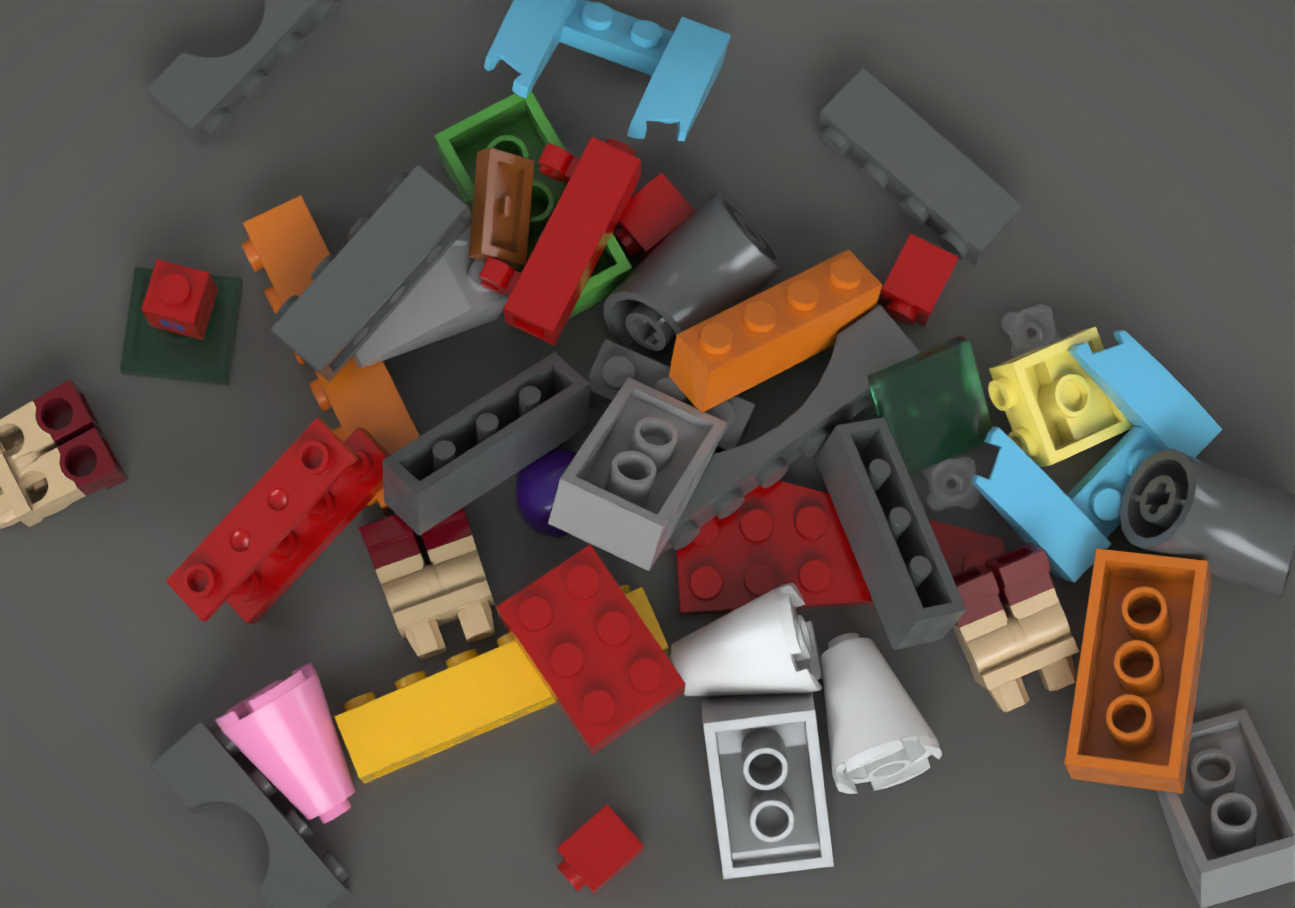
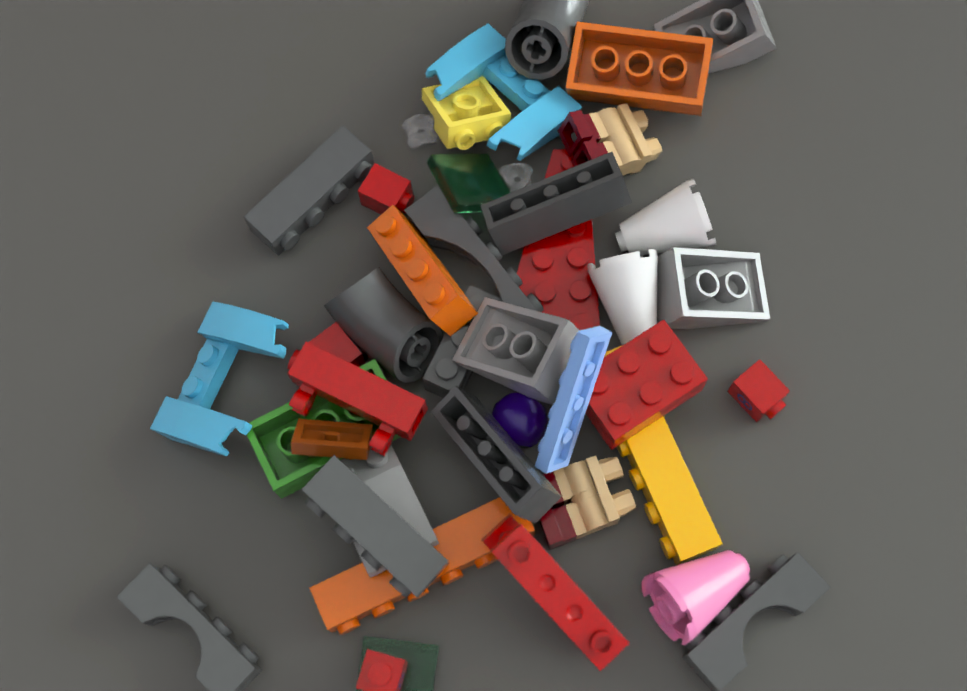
camera: 85 degrees left, 5 degrees down
(553, 541) = (572, 398): none -> light blue plate

